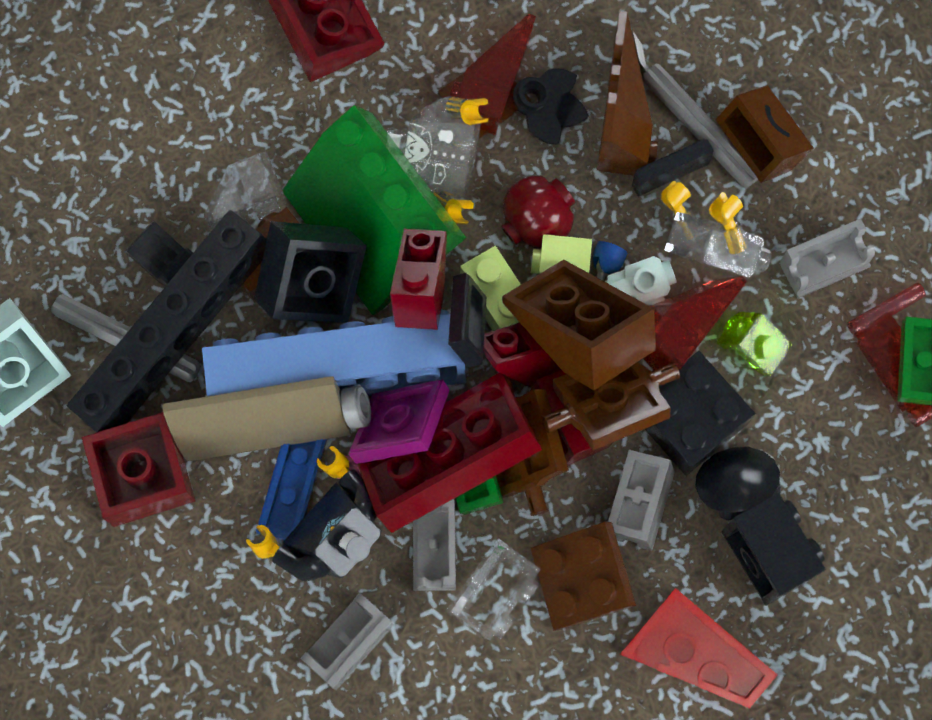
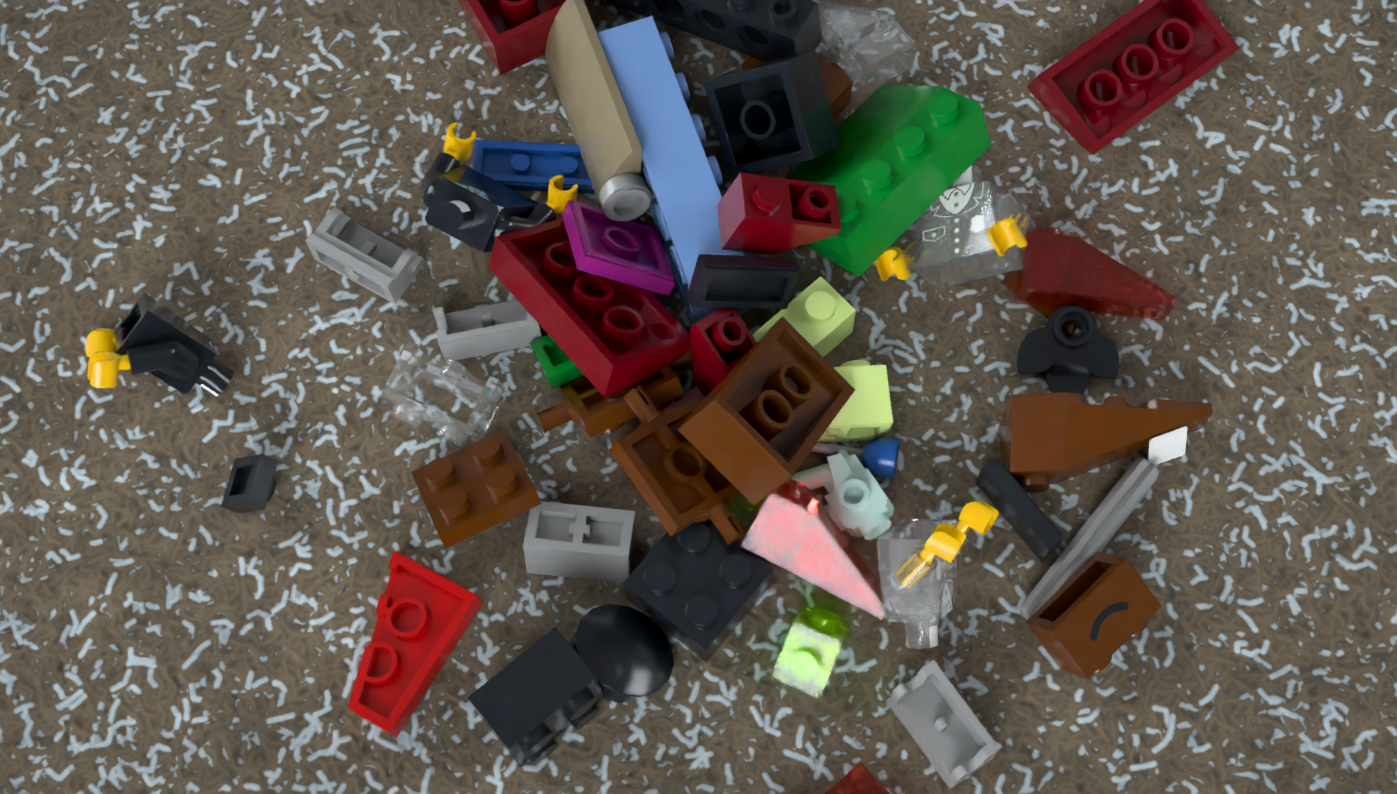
camera: 80 degrees right, 5 degrees down
(536, 209) = (920, 360): dark red plant -> none

